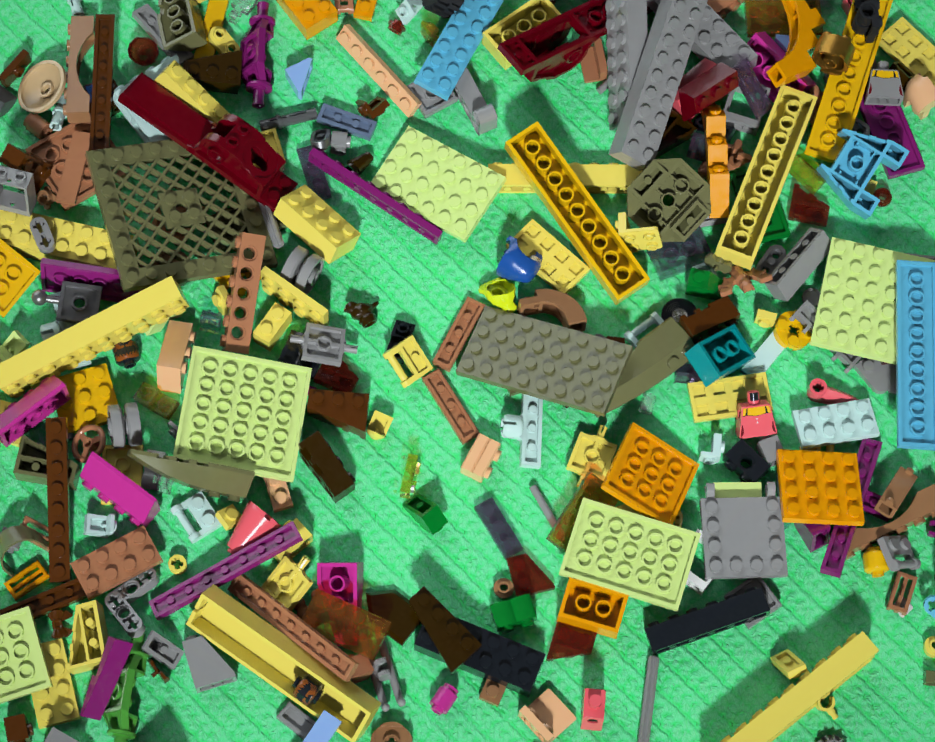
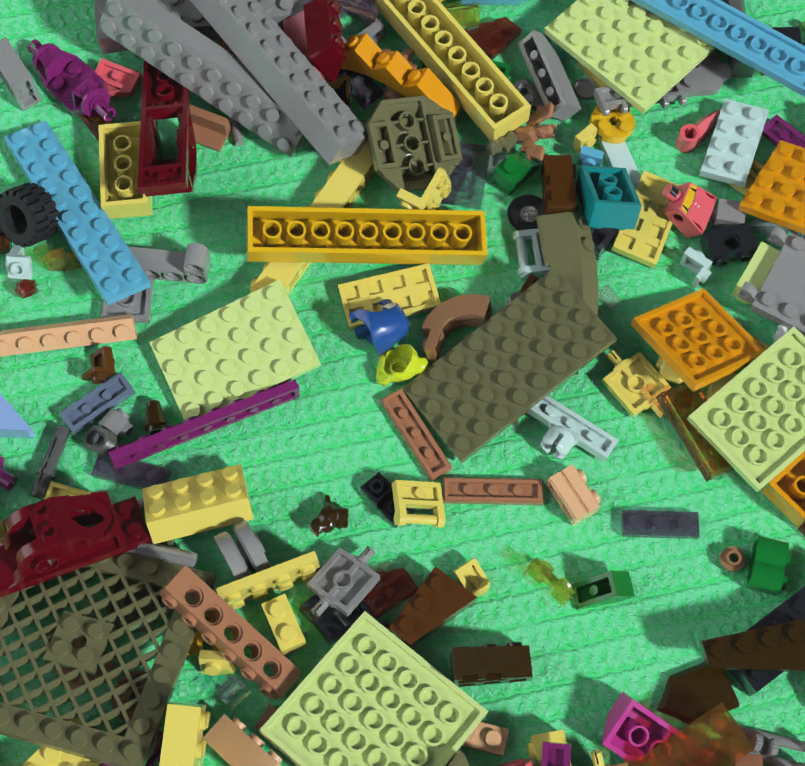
camera: 55 degrees left, 0 degrees up
(527, 576) = (731, 527): clear red wing -> none
(543, 505) = (664, 464): light grey bar -> none
(751, 331) = (590, 156): none -> medium azure plate

